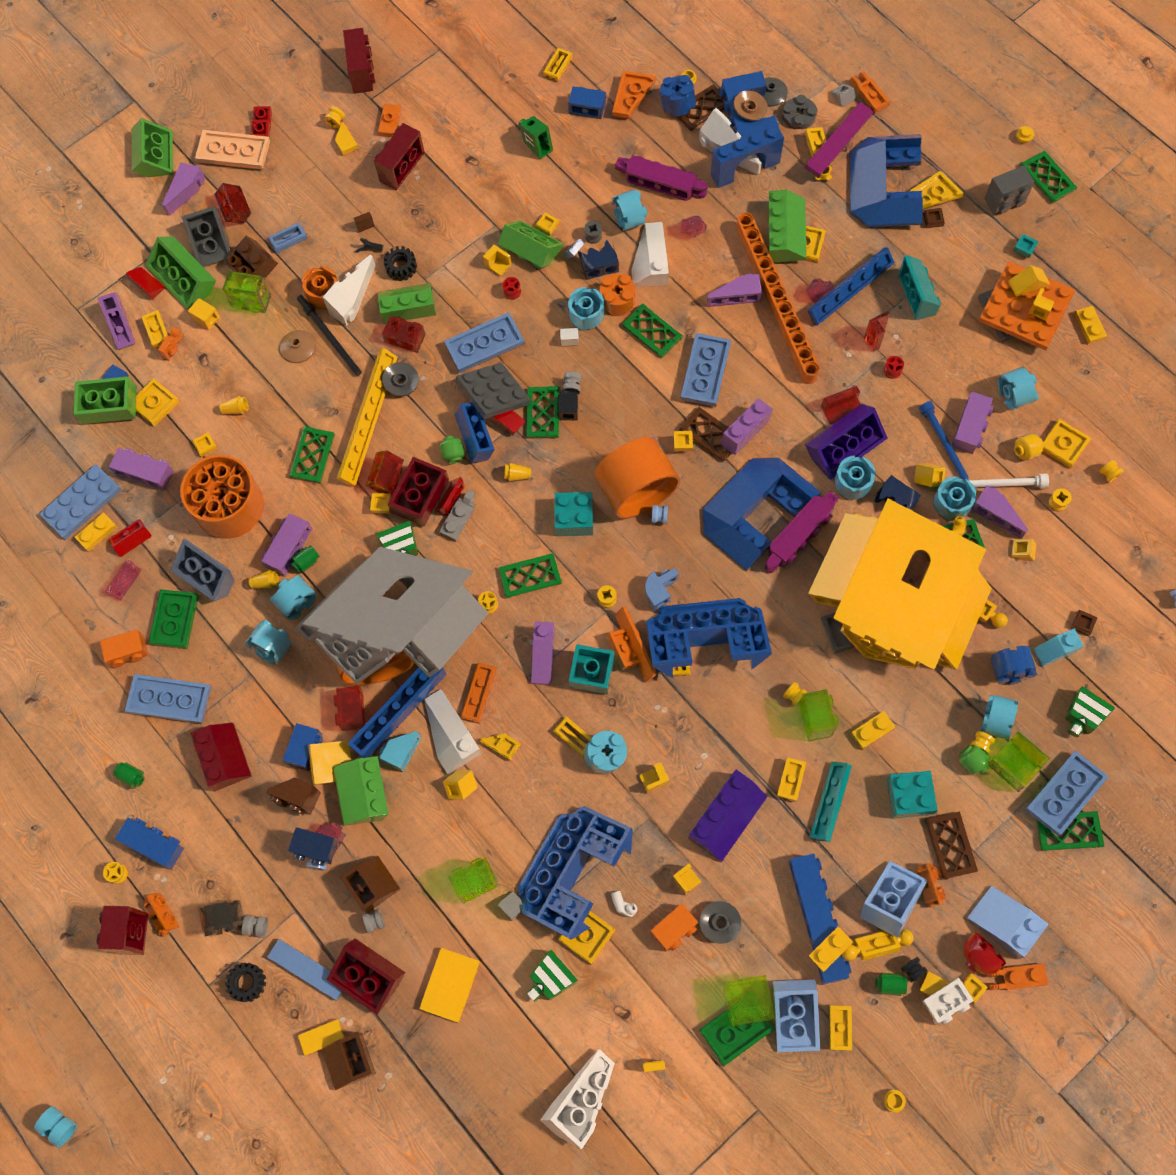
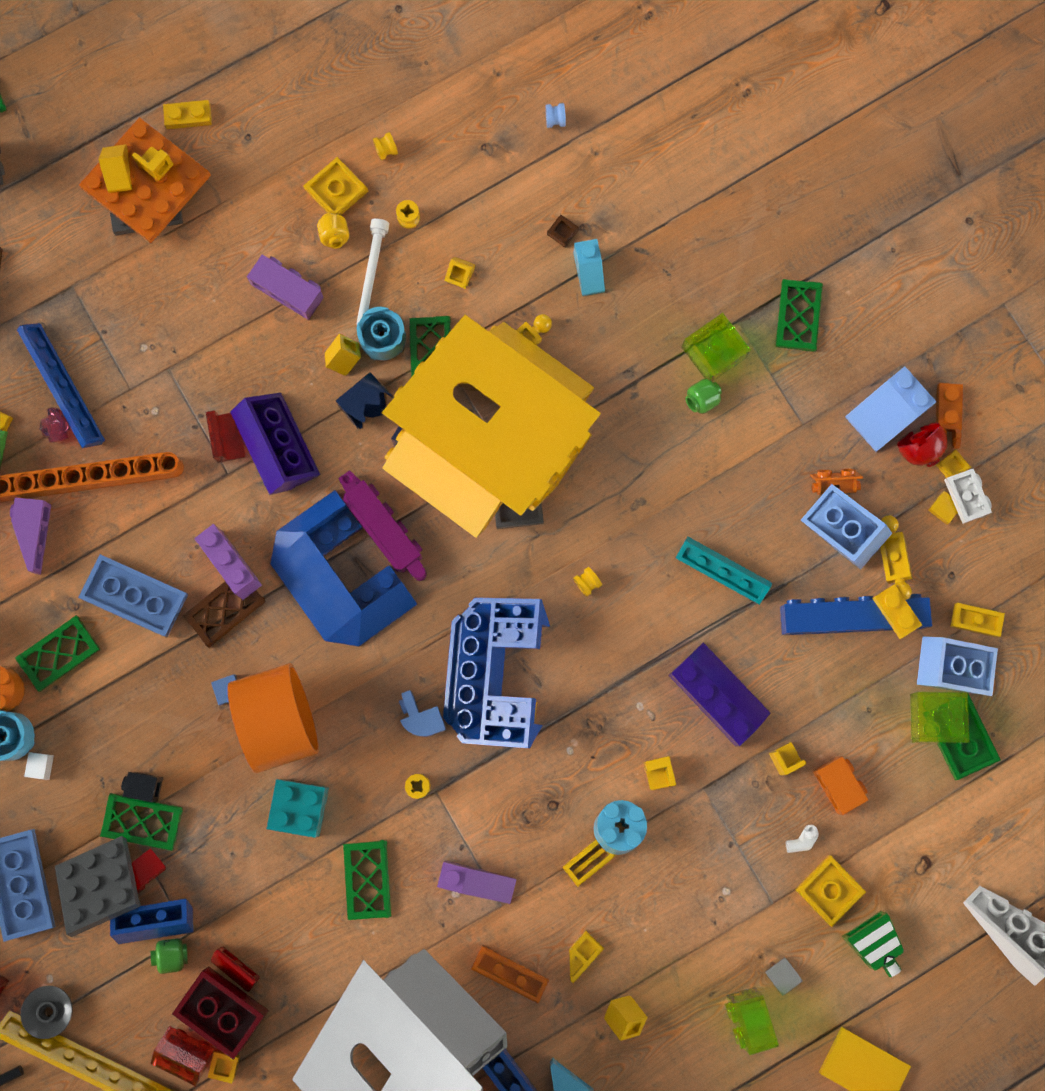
camera: 85 degrees left, 10 degrees up
(399, 538) = (285, 1048): torso -> none
(450, 736) = (558, 1020): white wedge -> none
(459, 516) = (266, 961): light grey hinge -> none
(488, 598) = (390, 942): yellow wheel -> none
(516, 472) = (221, 873): yellow cone -> none
(559, 862) = (742, 910): blue slope -> none
(572, 381) = (110, 775): light grey wheel -> none
(591, 669) = (511, 824): teal brick -> none
(629, 647) = (488, 772): orange bracket -> none
(654, 1066) = (992, 840): yellow tile -> none
(659, 514) = (321, 696): light blue wheel -> none
(683, 441) = (228, 646): yellow tile -> none
(725, 912) = (854, 726): dark grey dish -> none
(791, 779) = (689, 609): yellow plate -> none
(818, 715) = (622, 560): clear neon green brick -> none
(854, 477) = (315, 448): medium azure brick -> none
(873, 730) = (646, 501): yellow plate -> none
(876, 330) = (138, 371): clear red panel -> none
(891, 984) = (939, 552): green brick -> none
(897, 364) = (187, 355): red wheel -> none
(911, 794) = (732, 476): teal brick -> none
(914, 969) = (926, 523): black wheel -> none
(918, 288) = (86, 302): teal slope -> none
(927, 410) = (257, 335): blue piece -> none
(959, 525) = (421, 340): yellow arm -> none
(967, 848) = (803, 431): reddish brown window -> none
(983, 741) = (685, 381): yellow wheel -> none
(998, 510) = (406, 287): medium lavender slope -> none
(999, 716) = (661, 353): medium azure brick -> none
(1013, 665) = (604, 322): blue brick -> none
(1018, 388) = (255, 221): medium azure brick -> none
(1025, 246) = (60, 158): teal plate -> none
(1067, 793) = (759, 306): medium blue plate -> none
(1086, 712) = (670, 258): green torso -> none

